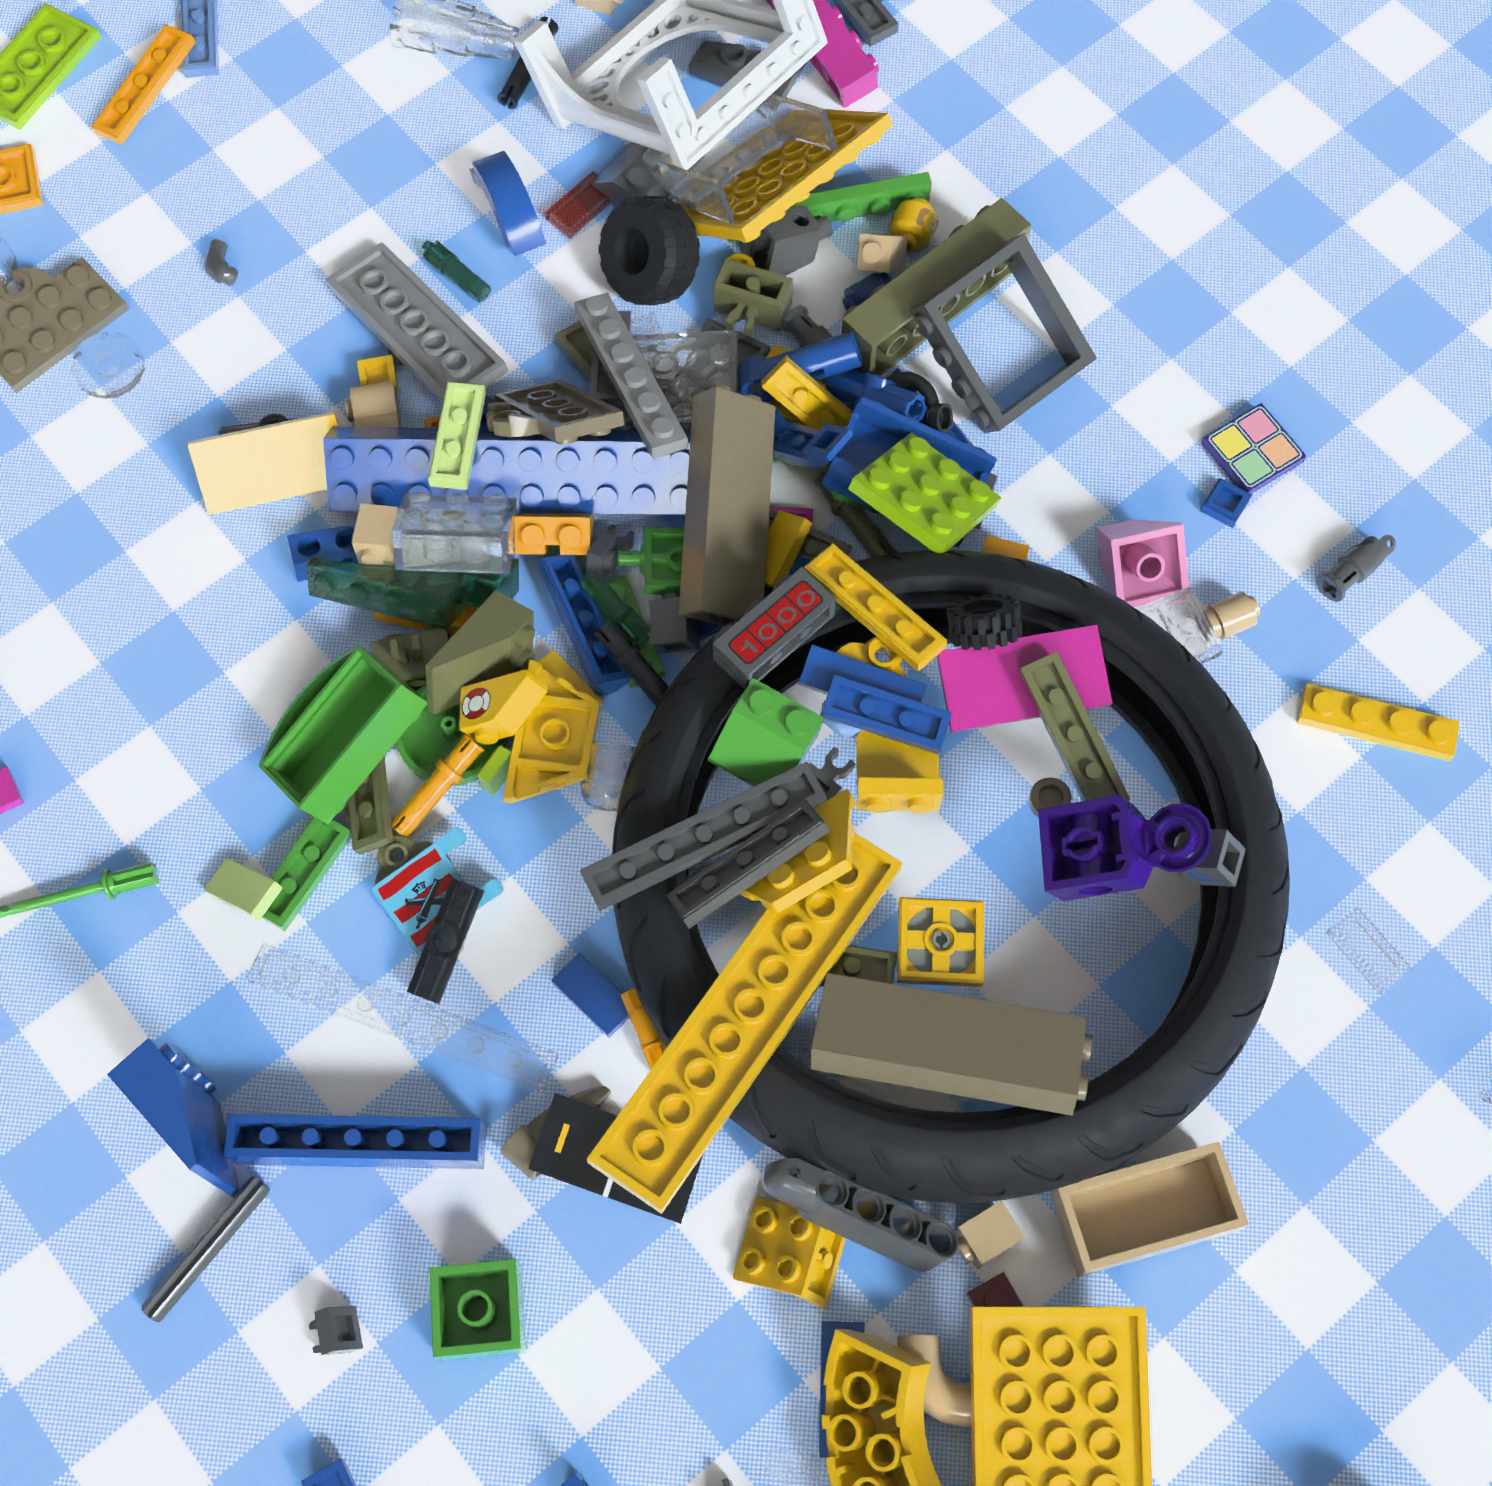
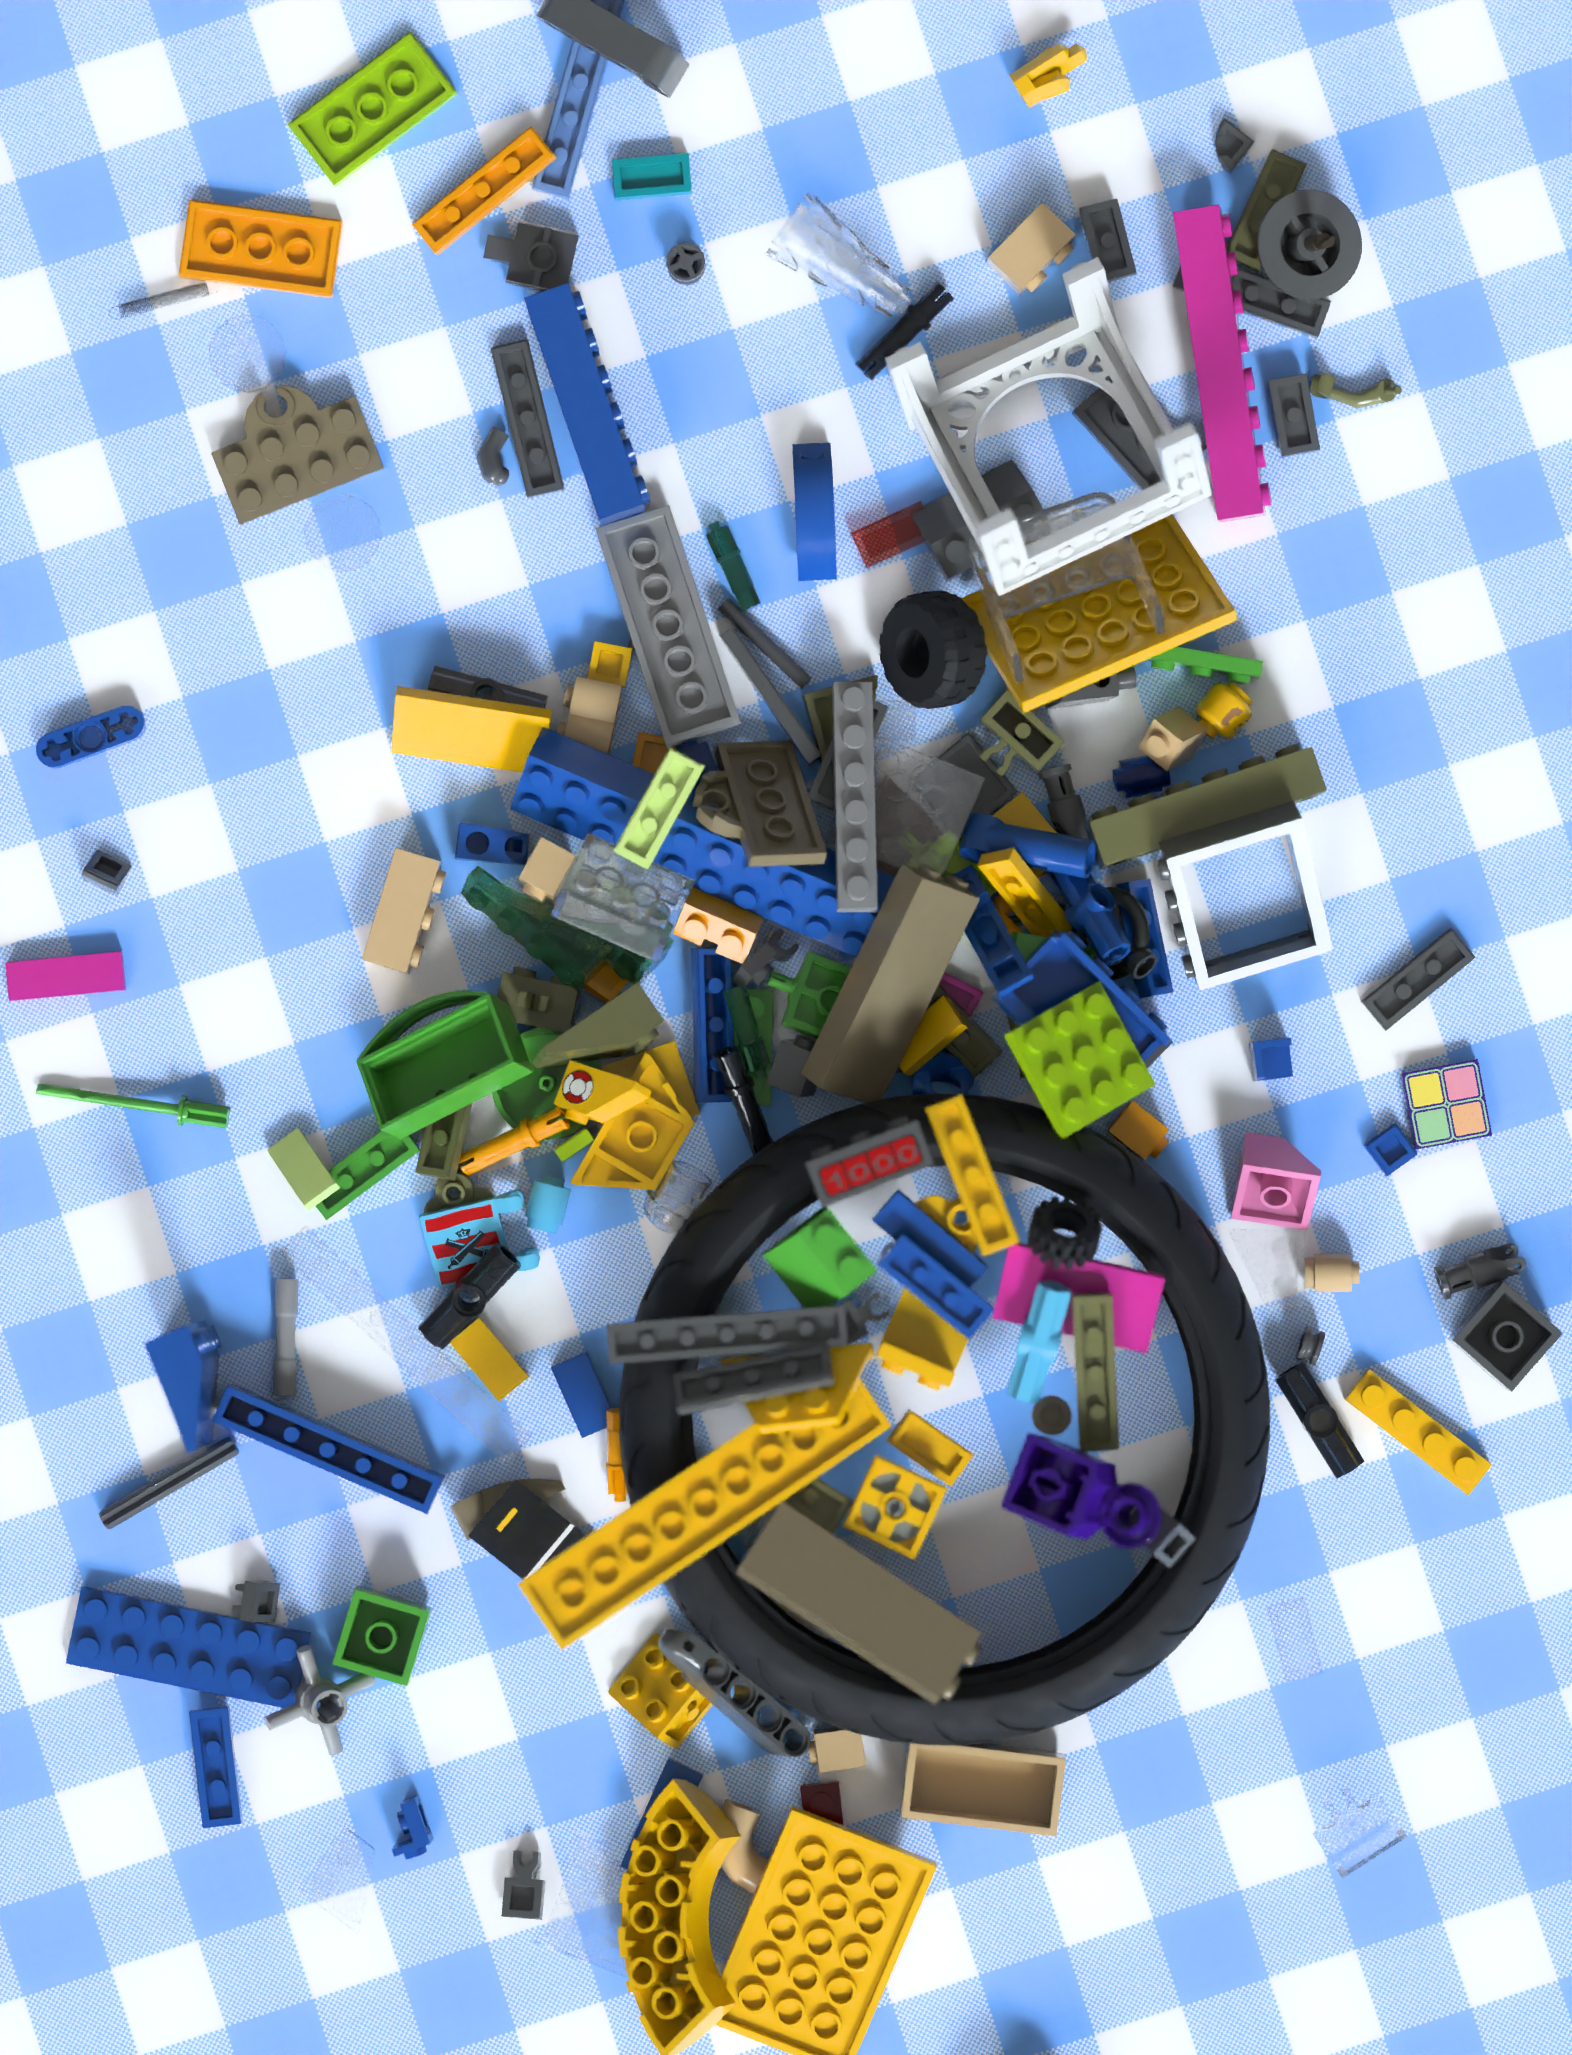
camera: 20 degrees right, 20 degrees up
(205, 116) = (537, 257): none -> dark grey piece
(240, 230) = (527, 419): none -> dark grey tile
(262, 633) = (404, 911): none -> tan brick
(272, 1032) = (286, 1311): none -> light grey piece
(279, 1414) = (186, 1647): none -> blue plate
(280, 34) = (651, 176): none -> teal tile
(280, 185) = (584, 403): none -> blue brick
(330, 77) = (683, 257): none -> dark grey wheel
(452, 1411) = (330, 1695): none -> light grey bar
(488, 998) = (489, 1359): none -> yellow tile
(490, 832) = (547, 1204): none -> medium azure brick
(506, 318) = (764, 643): none -> dark grey bar
(525, 348) = (770, 696): none -> dark grey tile
(945, 879) = (930, 1447): none -> yellow tile
(1007, 728) = (1038, 1341): none -> medium azure piece
(1085, 466) = (1271, 1059): none -> blue panel
(1176, 366) = (1417, 979): none -> dark grey tile
(1245, 683) = (1310, 1345): none -> dark grey bush
(1307, 756) = (1333, 1441): none -> black piece
(1412, 603) = (1505, 1336): none -> dark grey brick

